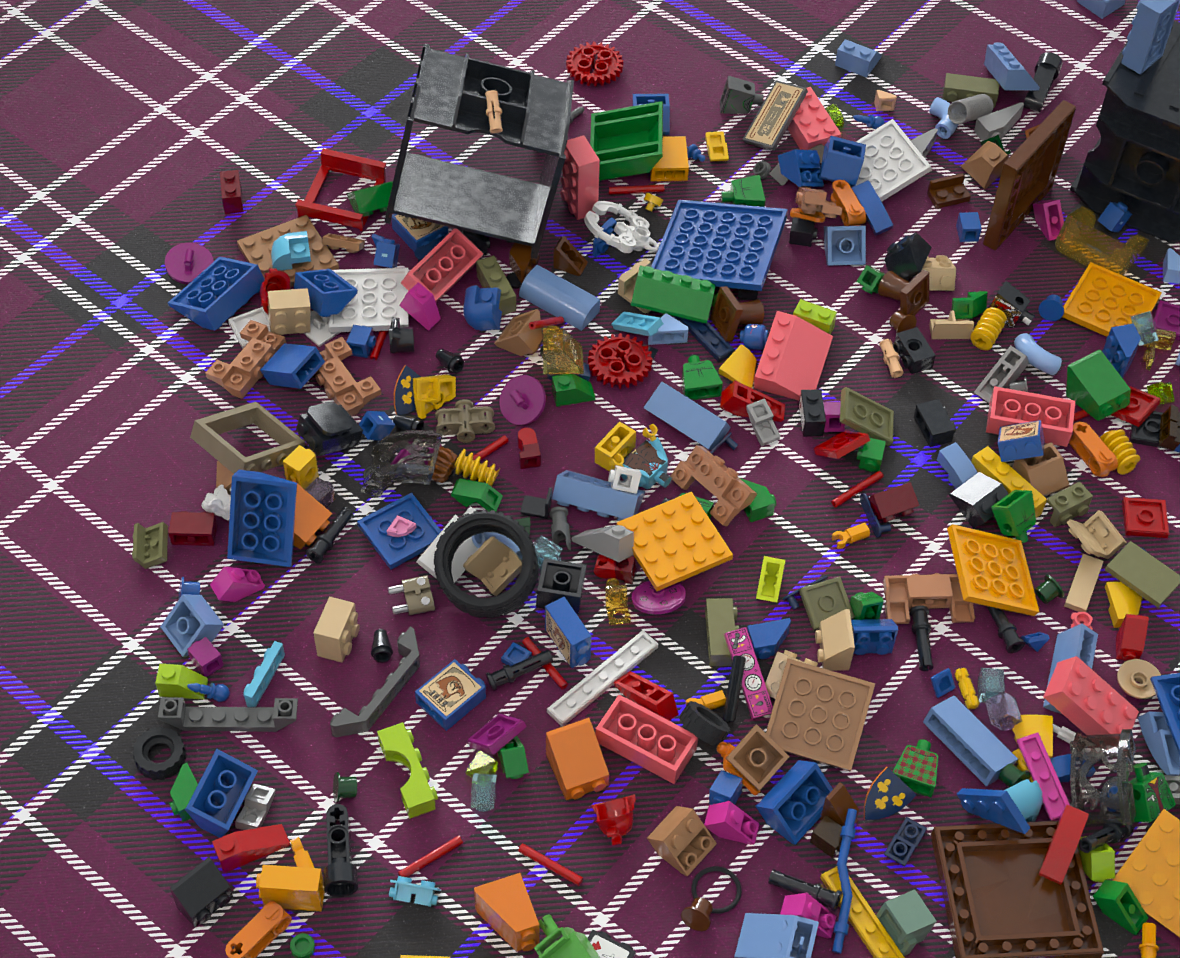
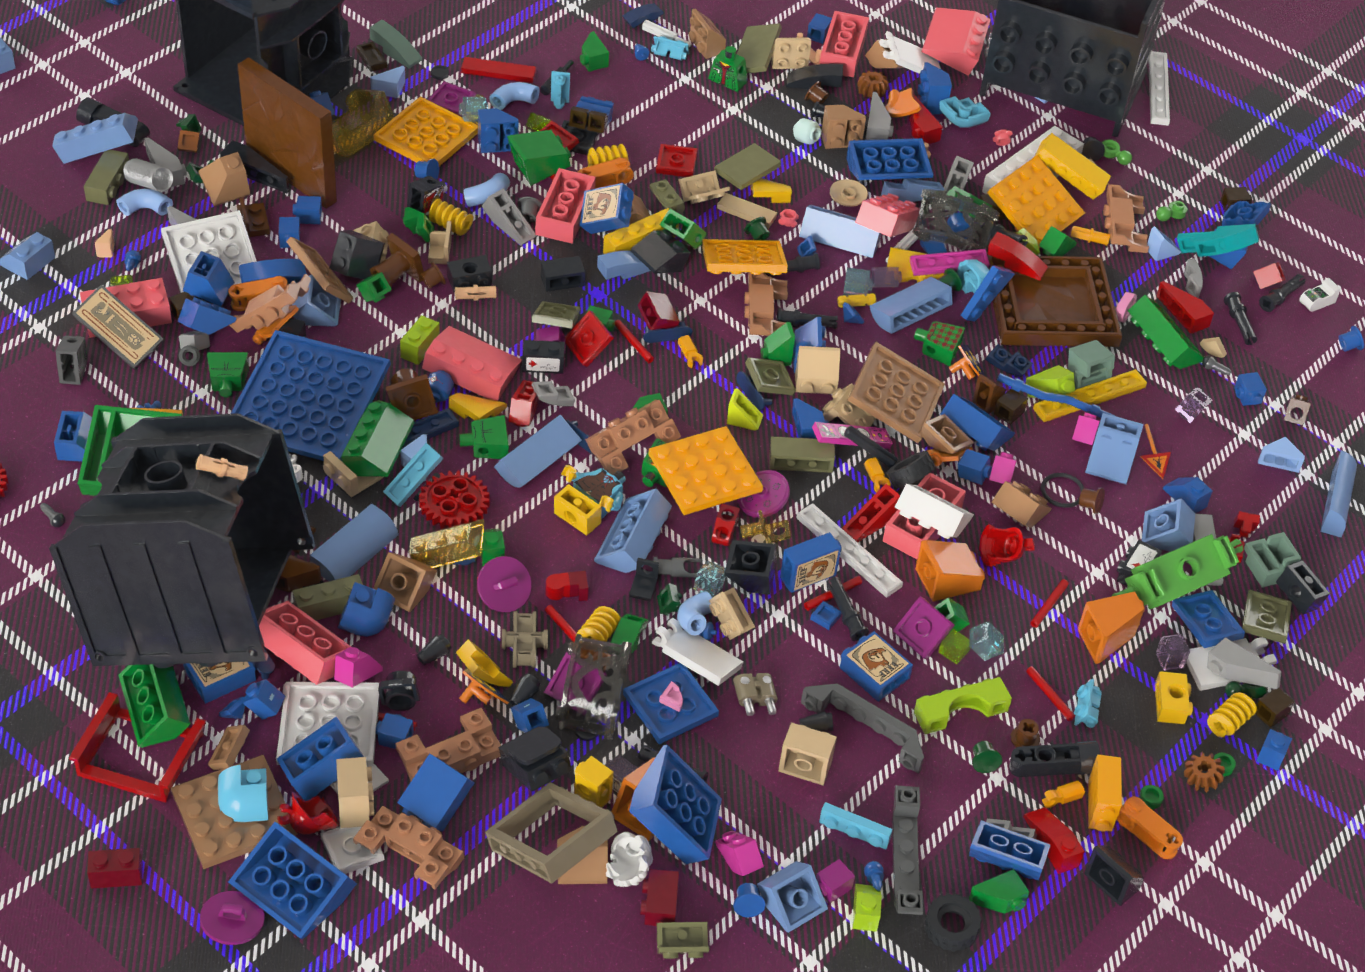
camera: 90 degrees left, 5 degrees down
(375, 831) = (1025, 734): none -> reddish brown piece
(474, 524) = (725, 629): black tyre -> none
(546, 322) = (404, 551): red piece -> none
(610, 541) = (704, 519): light grey slope -> none
(630, 484) = (625, 502): white brick -> none
(635, 732) = (932, 511): none -> white slope
(716, 146) = (133, 392): yellow slope -> none
(822, 895) = (1065, 421): black pin -> none
(871, 243) = (320, 270): none -> medium nougat tile
(872, 880) = (1054, 380): none -> lime slope
(934, 216) = (288, 228): none -> blue brick
(1131, 637) = (813, 187): red slope -> none

